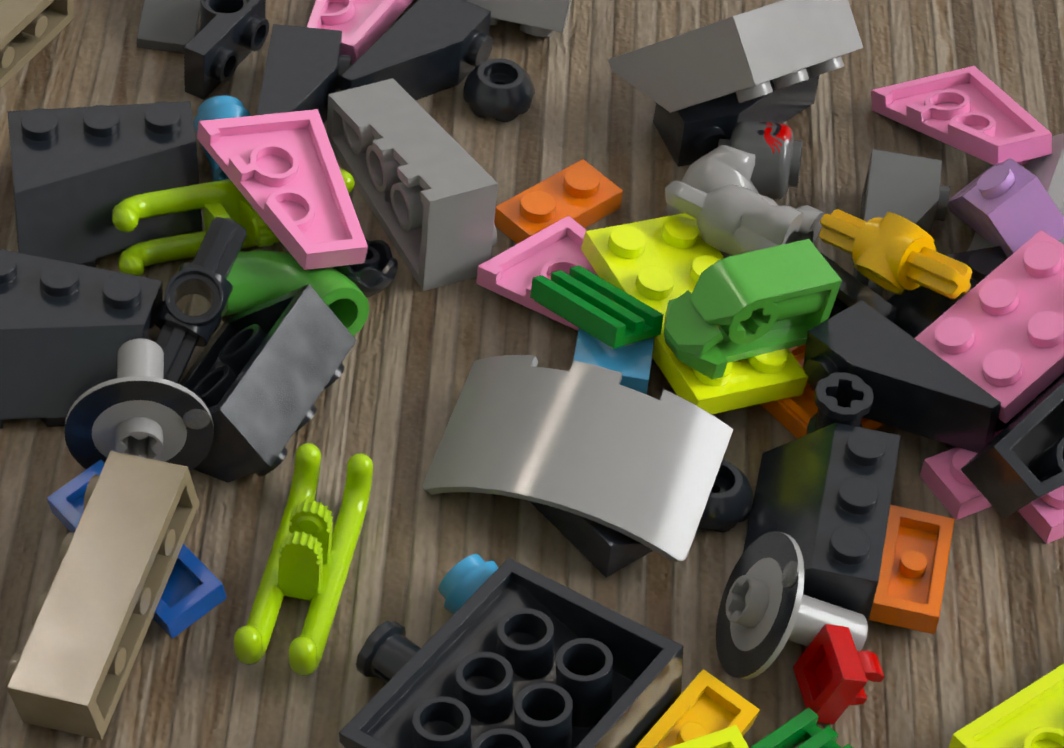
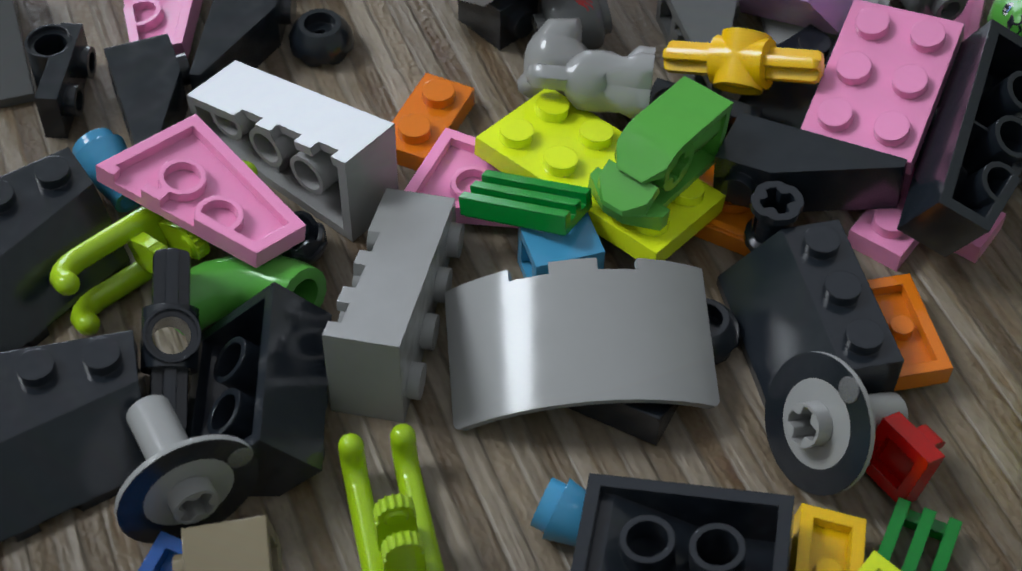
camera: 20 degrees left, 5 degrees up
(417, 353) = (391, 307): none -> light grey wedge

